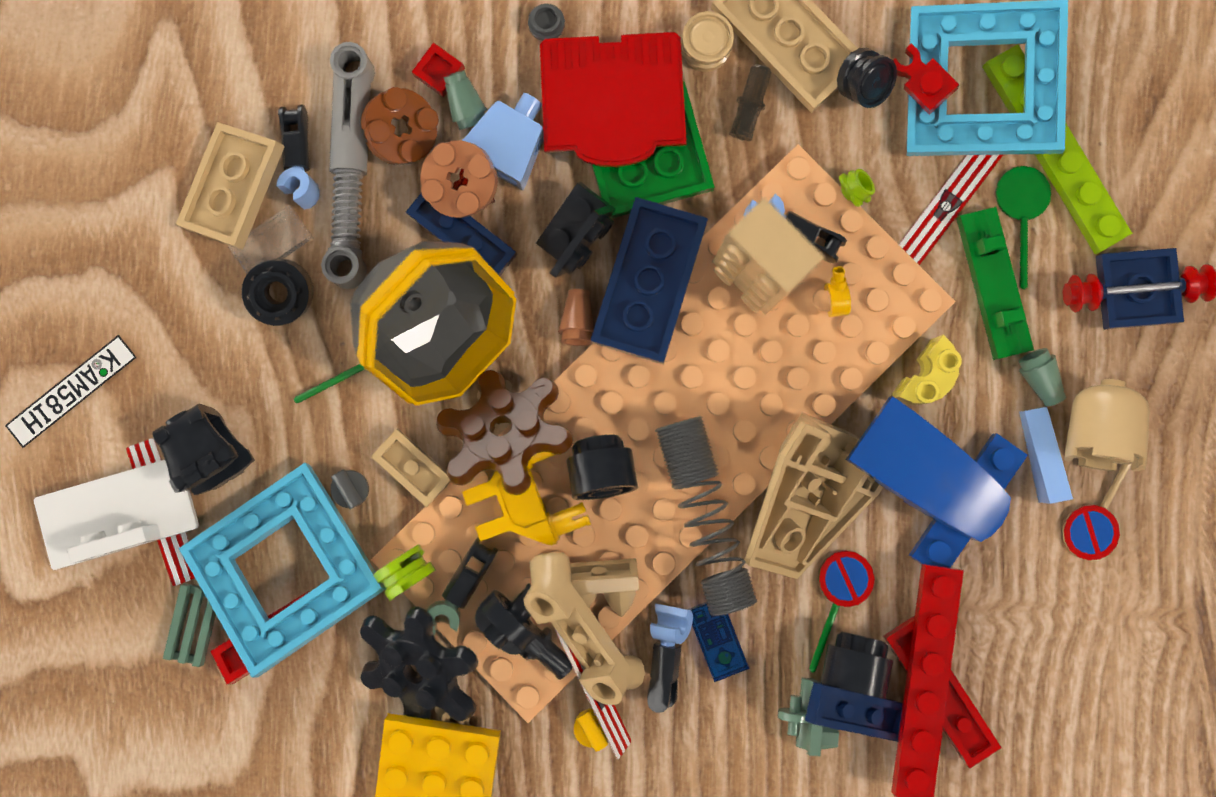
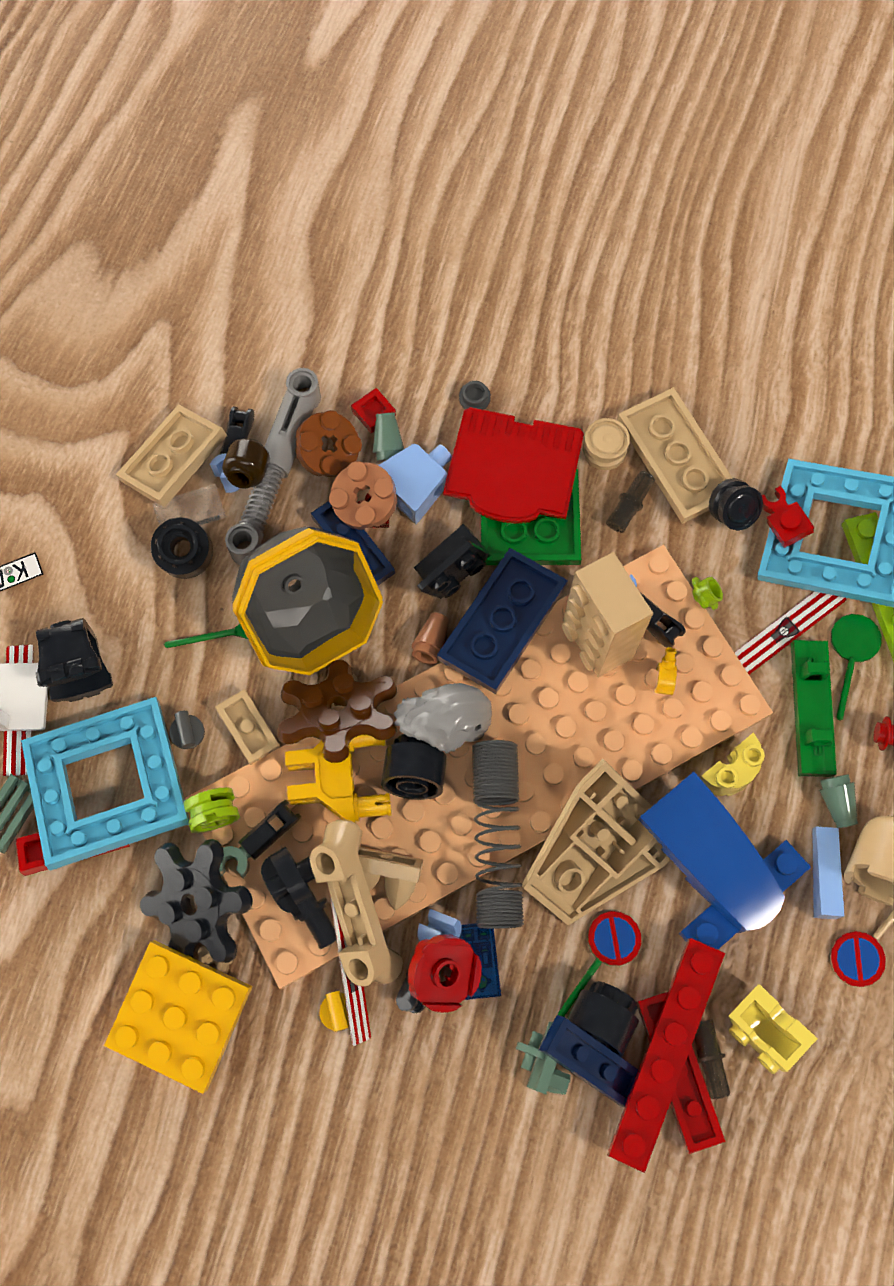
camera: 15 degrees right, 15 degrees down
(317, 177) = (246, 463): none -> dark brown head
(618, 409) = (445, 716): none -> light grey piece
(675, 657) = (425, 966): none -> red plate
(970, 674) = (711, 1060): none -> clear smoke axle
(1024, 631) = (770, 1031): none -> light yellow cylinder

